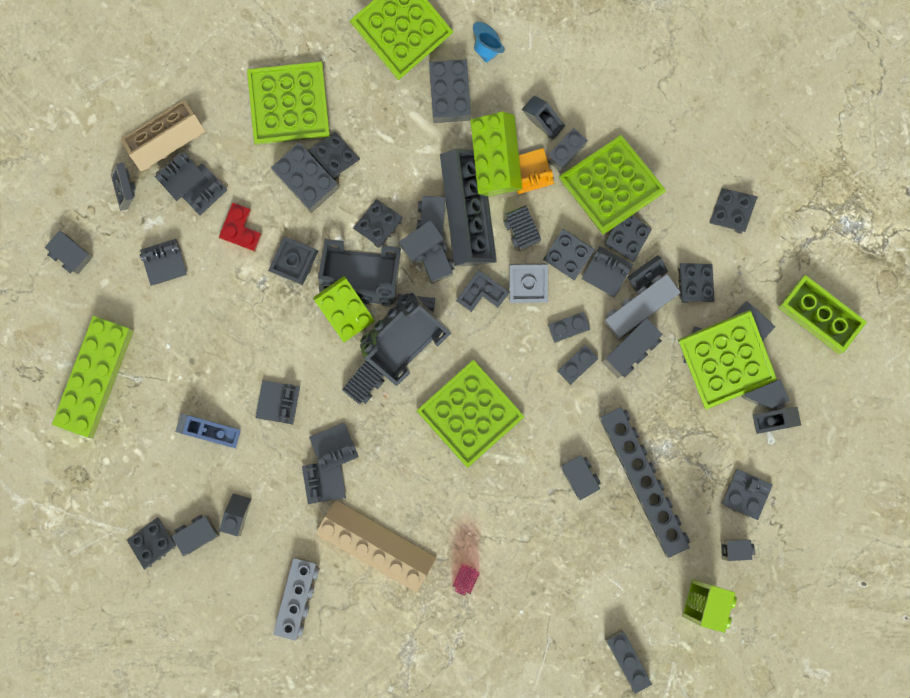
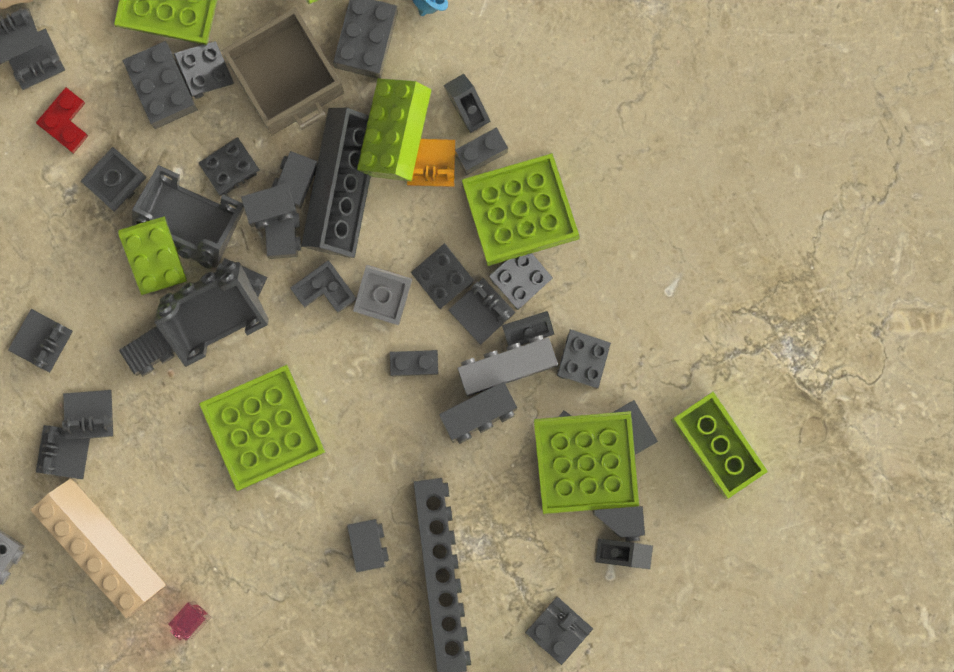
camera: 20 degrees right, 0 degrees up
(397, 137) = (284, 72): none -> dark tan container
(522, 228) = (397, 227): dark grey brick -> none
(577, 364) = (409, 411): dark grey plate -> none
(733, 210) = (656, 286): dark grey hinge -> none

